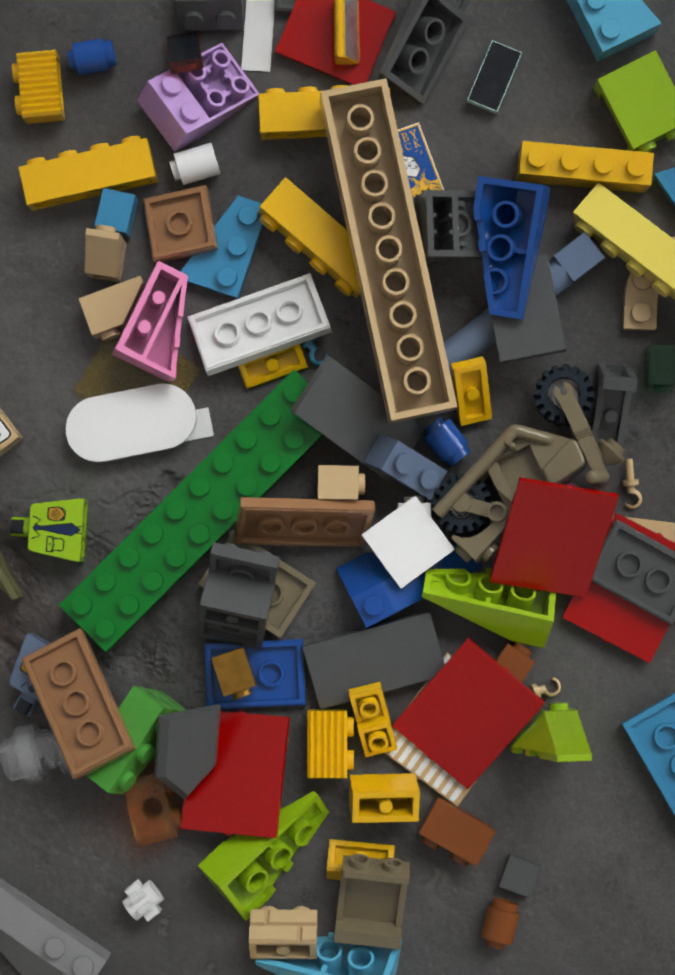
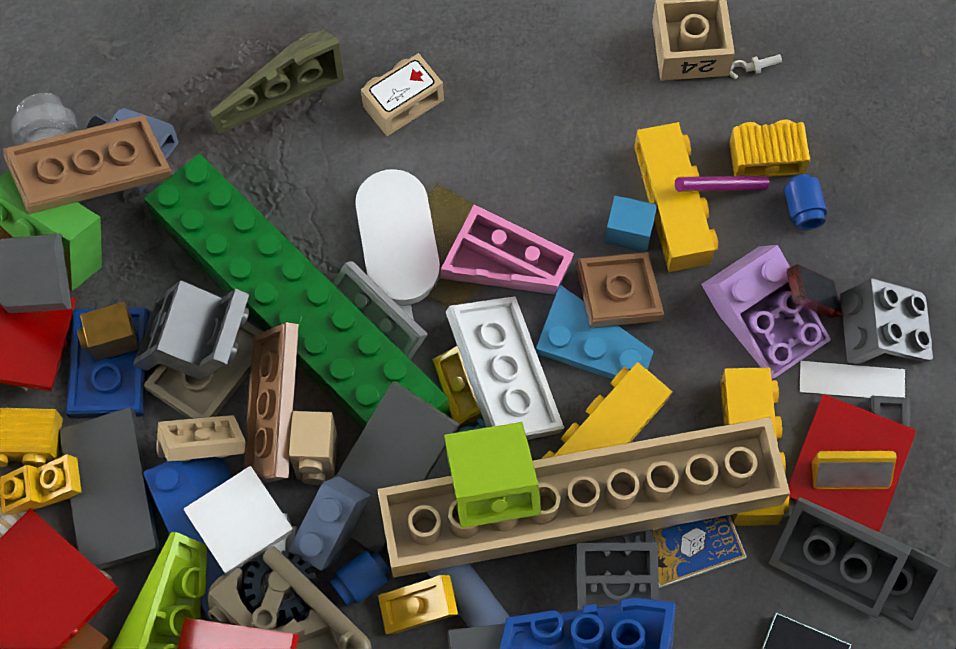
camera: 90 degrees right, 20 degrees down
(55, 528) = (284, 160): lime torso -> none
(79, 129) = (721, 183): none -> magenta bar
(104, 253) = (584, 207): tan slope -> none
(110, 308) = (525, 208): tan slope -> none
(195, 164) = (688, 305): white brick -> none
(205, 436) = (380, 308): none -> light grey tile
(335, 581) = (199, 438): none -> tan bracket
(375, 324) = (493, 474): none -> lime panel

